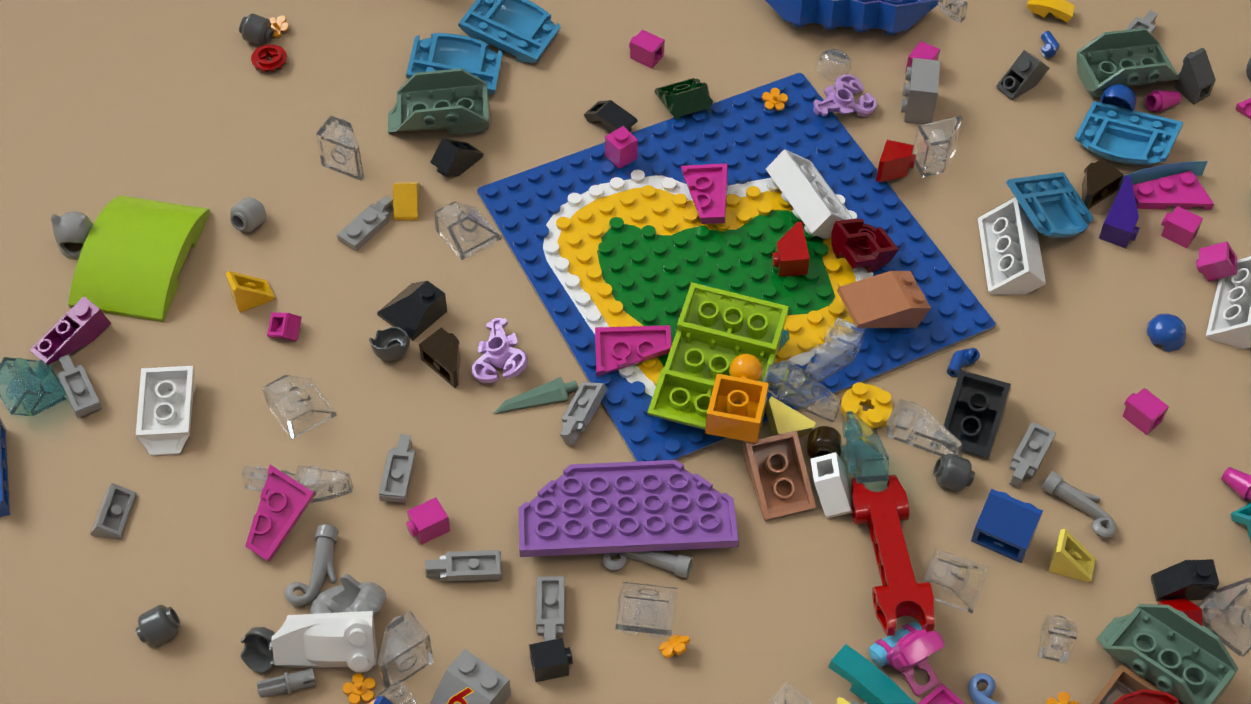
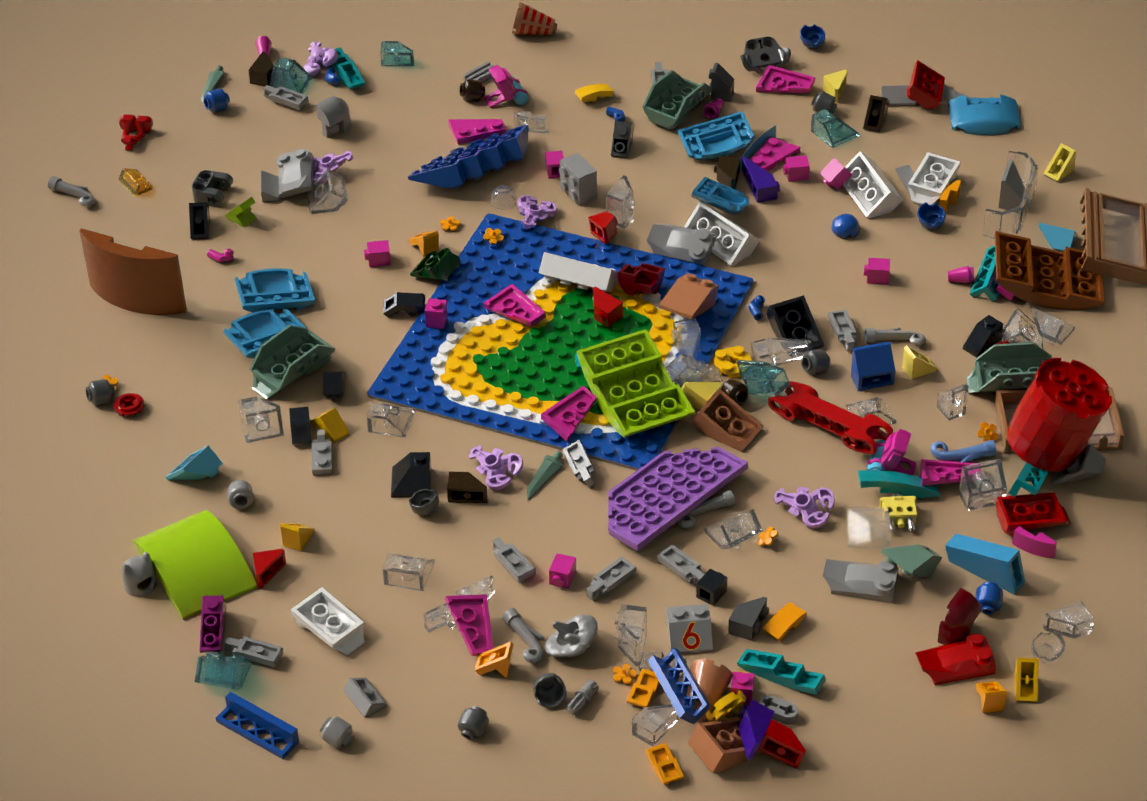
camera: 40 degrees left, 10 degrees down
(38, 532) = (336, 732): none -> light grey head
(184, 306) = (267, 565): none -> red slope
(246, 160) = (197, 466): none -> medium azure slope
(255, 574) = (496, 658): none -> light orange slope
(284, 326) = (343, 537): dark pink slope -> none
(327, 641) = (588, 655): white slope -> none
(375, 178) = (300, 425): none -> black slope
(702, 66) = (426, 241): none -> light orange slope
(738, 401) = (676, 392): light orange brick -> none
(753, 60) = (450, 224): none -> light orange plant
(756, 640) = (807, 504): none -> lavender animal
(832, 485) = (762, 407): white slope -> none
(956, 232) = (682, 243): none -> light grey slope
(1119, 96) = (692, 117): blue hair -> none

